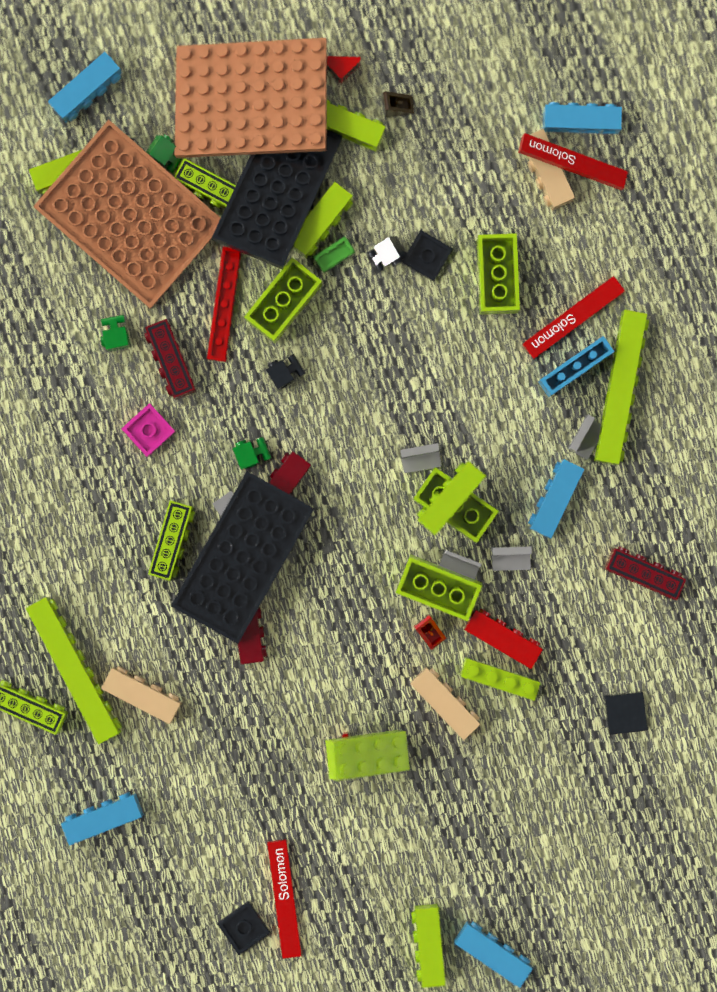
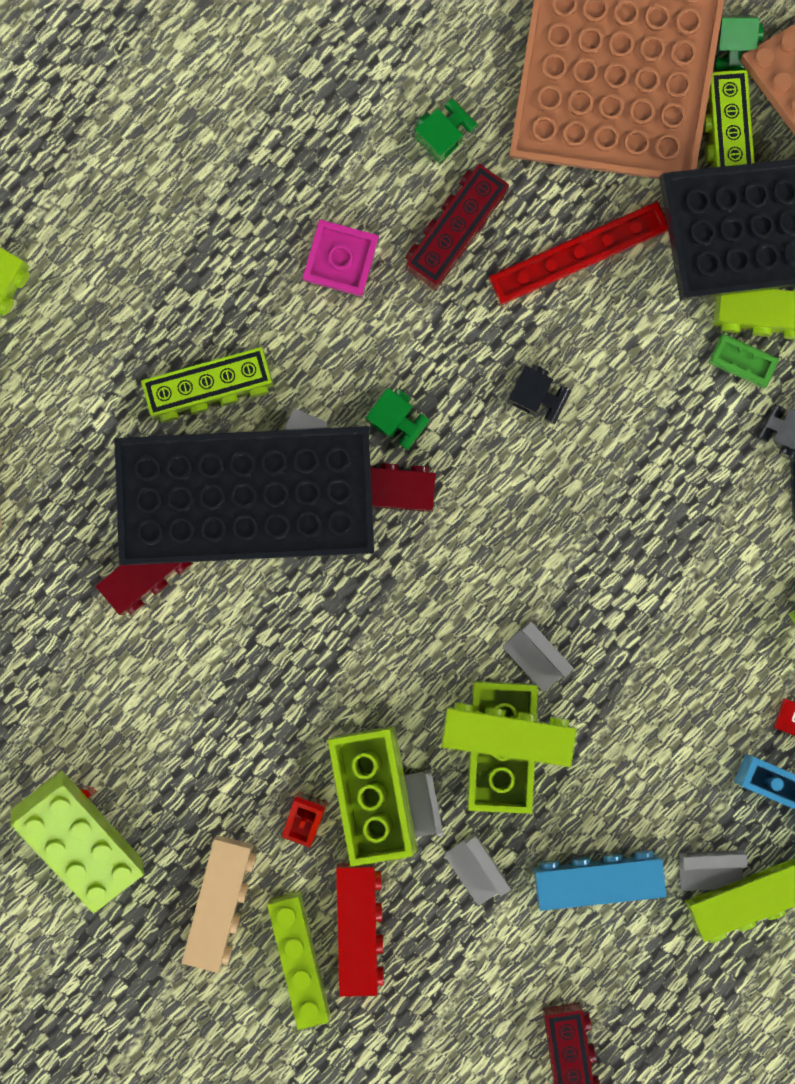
camera: 60 degrees right, 0 degrees up
(283, 300) = (637, 330): lime brick -> none

